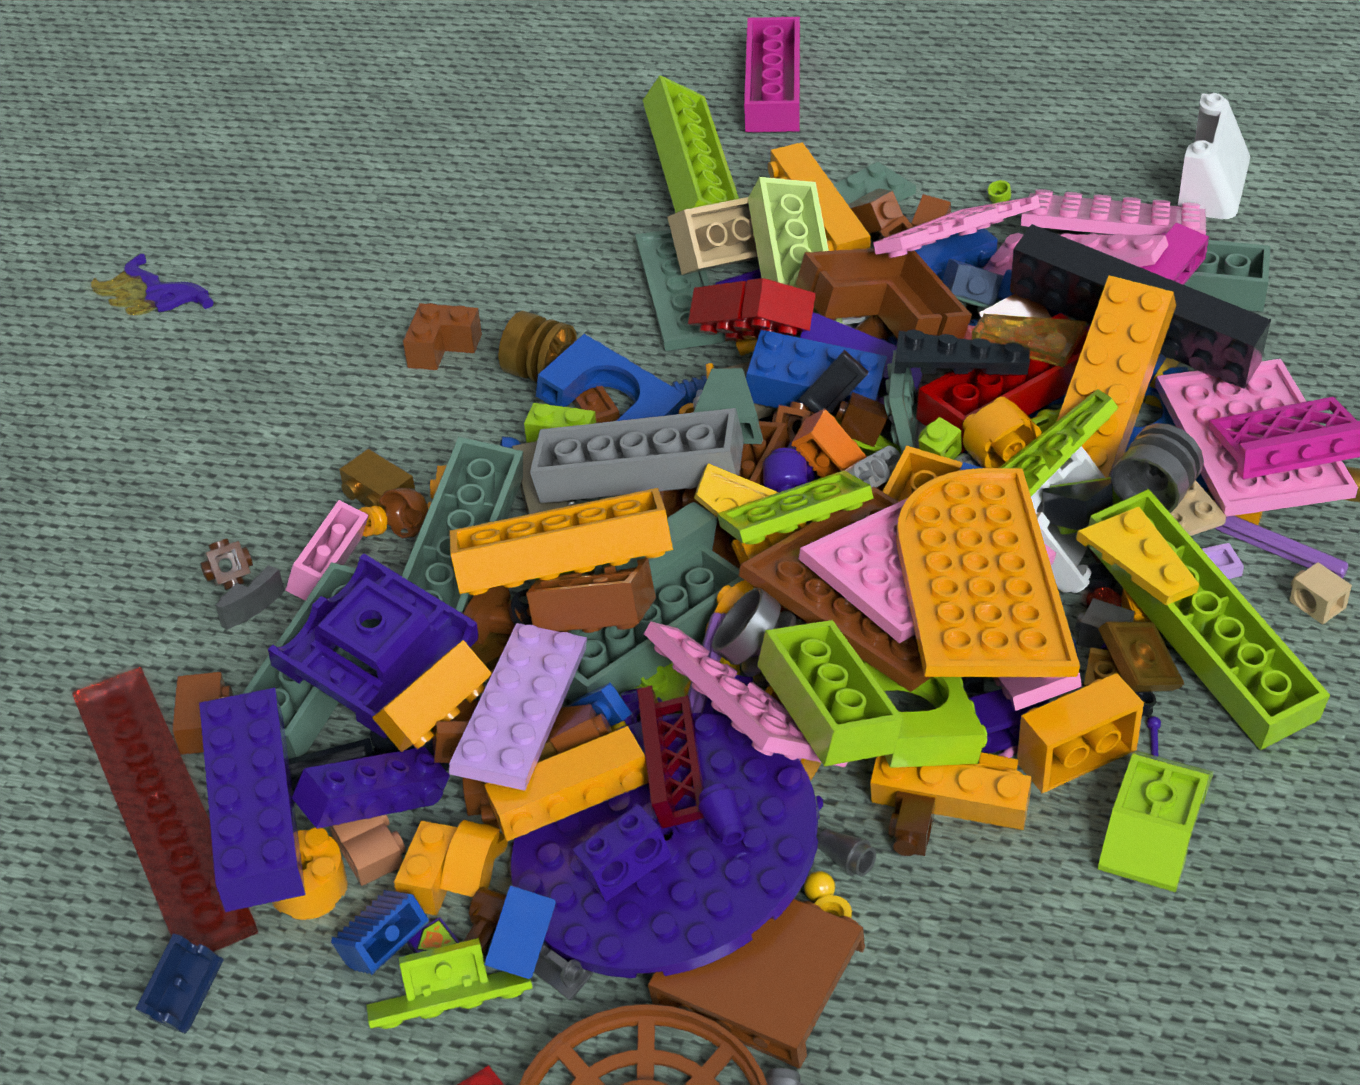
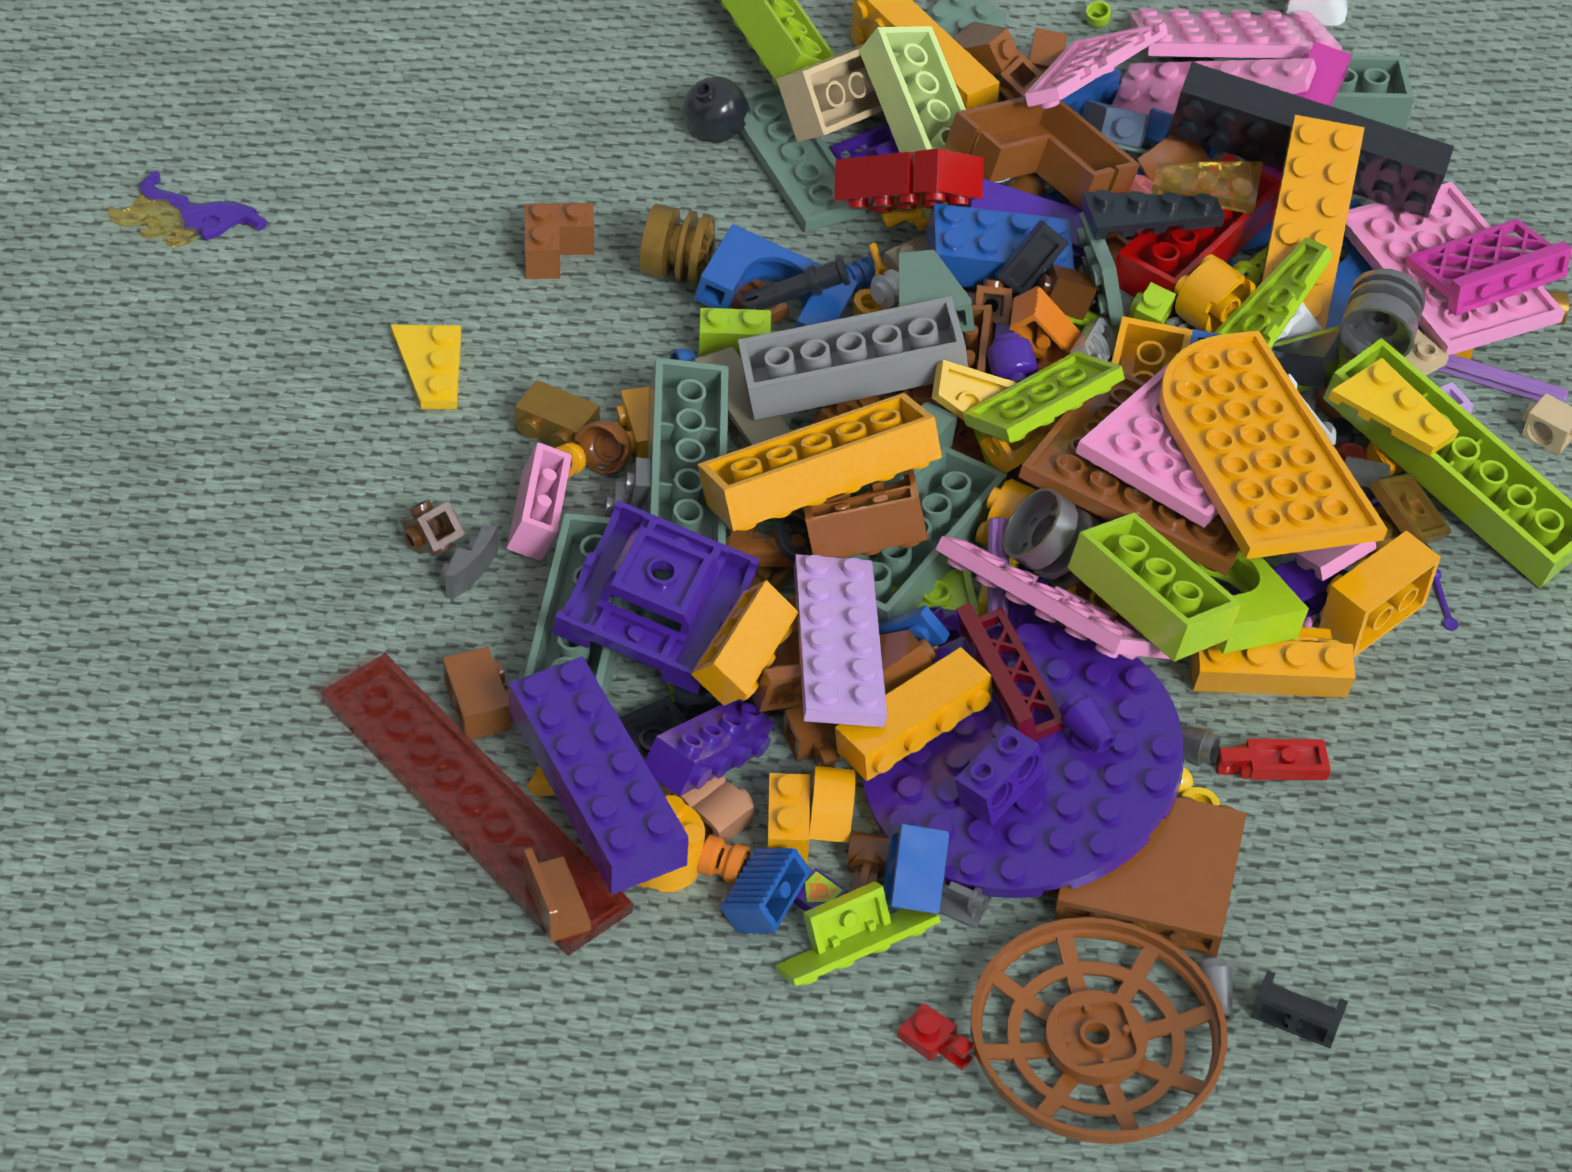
camera: 20 degrees left, 5 degrees up
(179, 984) = (585, 975): dark blue hinge -> none
(181, 903) = (555, 897): none -> dark orange panel
(296, 427) = (431, 361): none -> yellow wing
(352, 893) = (723, 859): none -> orange wheel
(403, 549) = (633, 490): none -> flat silver slope
(620, 241) = (715, 109): none -> black cylinder
(637, 389) = (812, 281): none -> black pin
(912, 823) = (1245, 705): reddish brown brick -> none
(926, 880) = (1276, 760): none -> red hinge
(1154, 820) = (1472, 670): lime slope -> none

